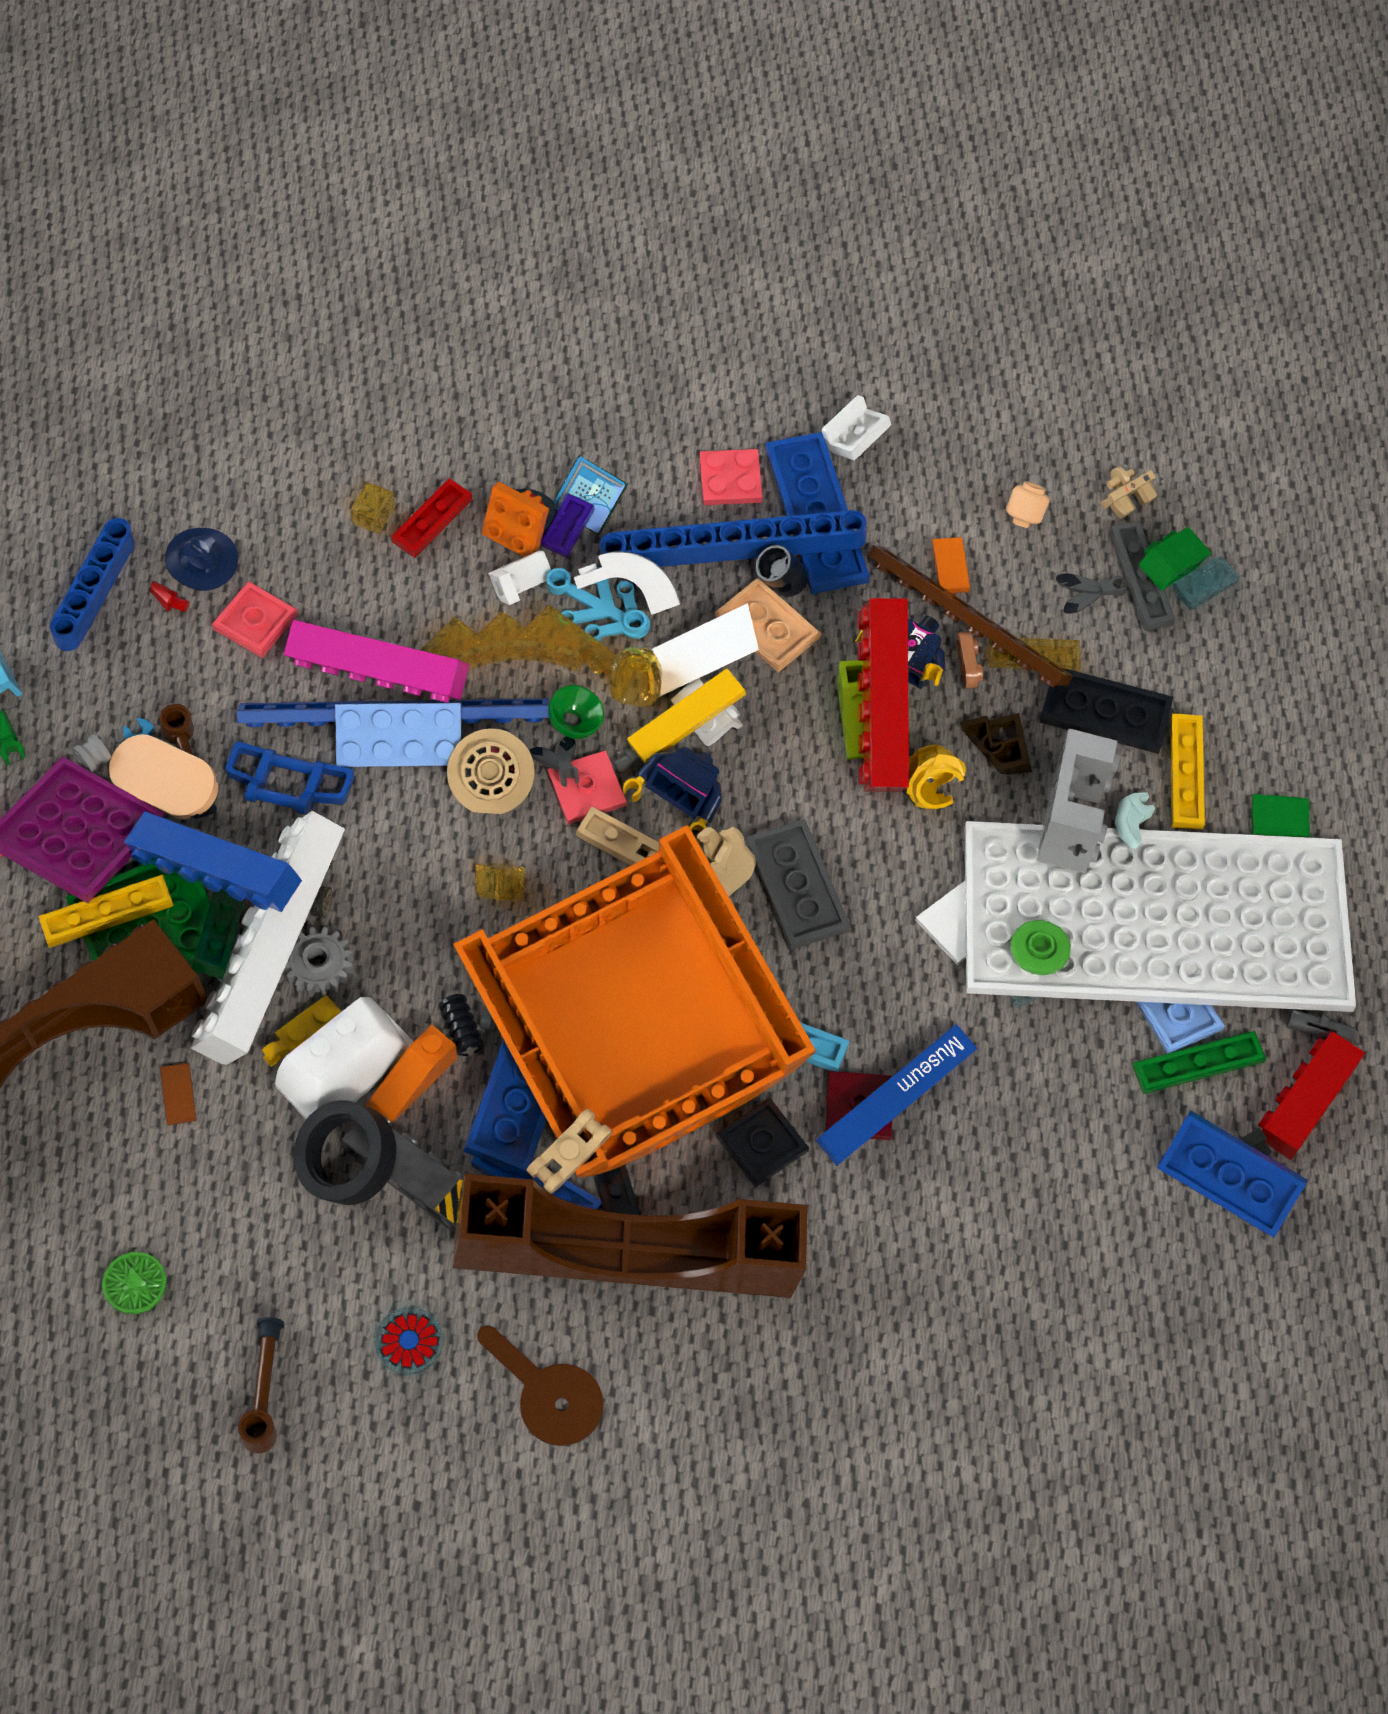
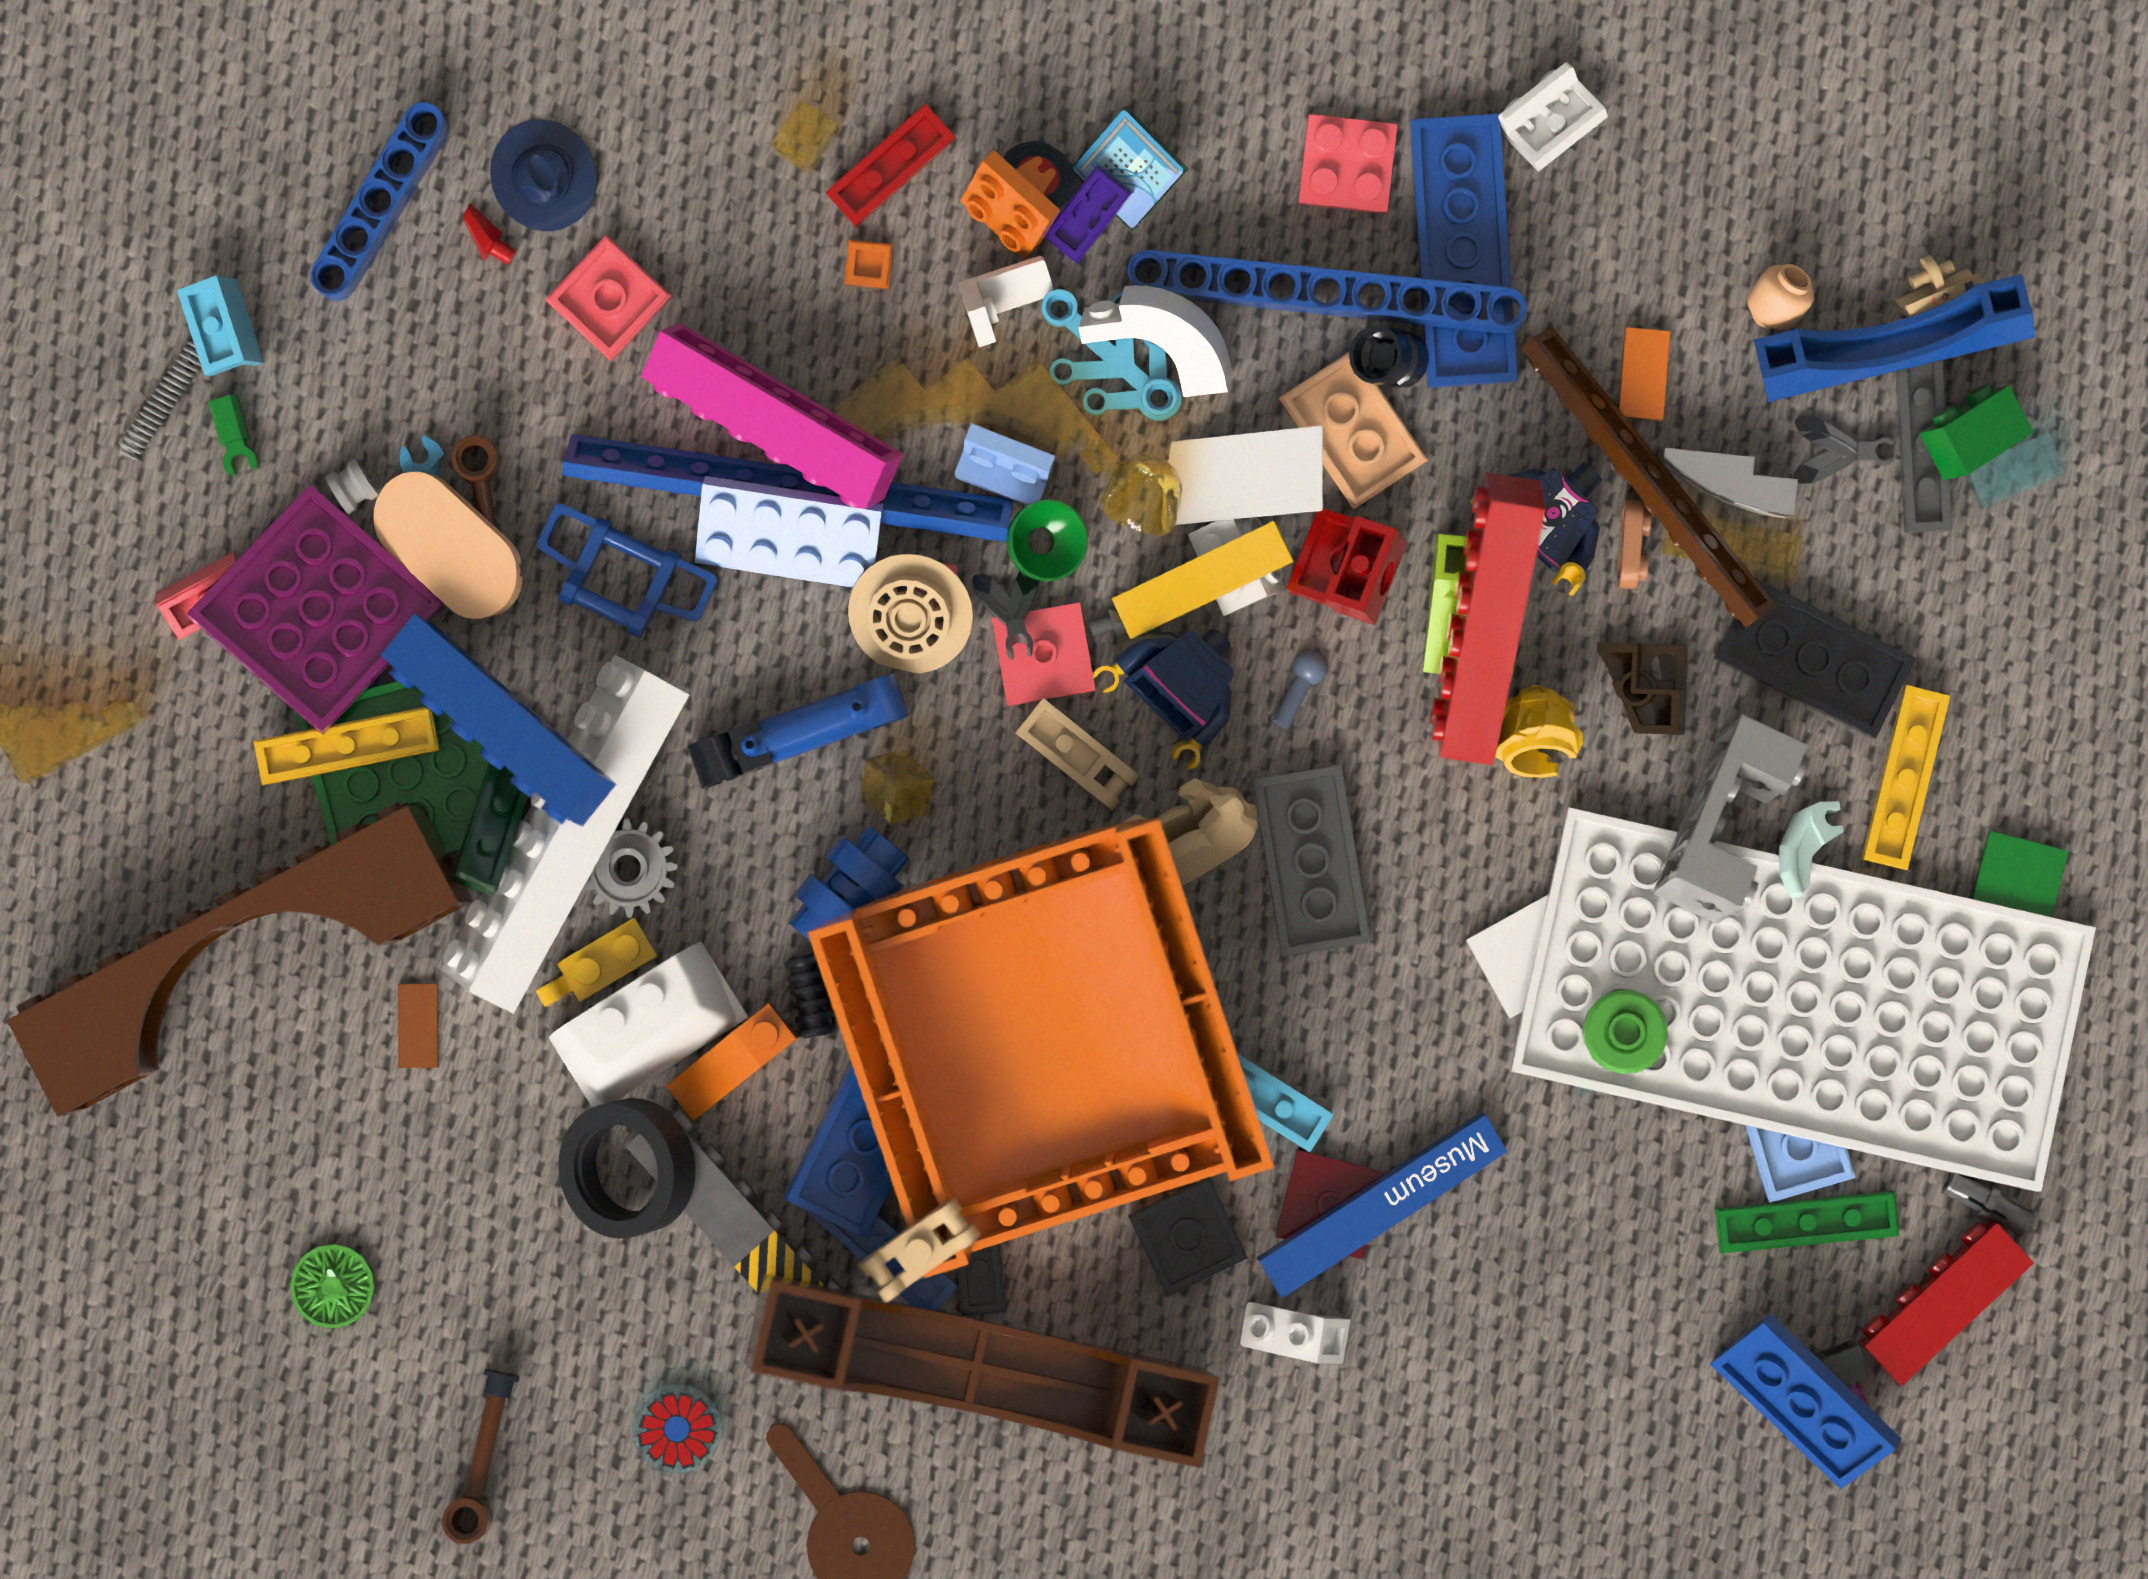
camera: 15 degrees right, 25 degrees up
(397, 869) = (797, 731): none -> blue piece
(427, 577) = (868, 264): none -> orange tile
(490, 917) = (868, 861): none -> blue piece
(538, 670) = (1004, 466): none -> light blue bracket
(769, 770) = (1309, 669): none -> sand blue bar
(783, 697) = (1348, 564): none -> red brick
(855, 1191) = (1295, 1333): none -> white bracket
(1024, 613) = (1732, 481): none -> light grey slope
(1160, 487) = (1972, 322): none -> blue arch

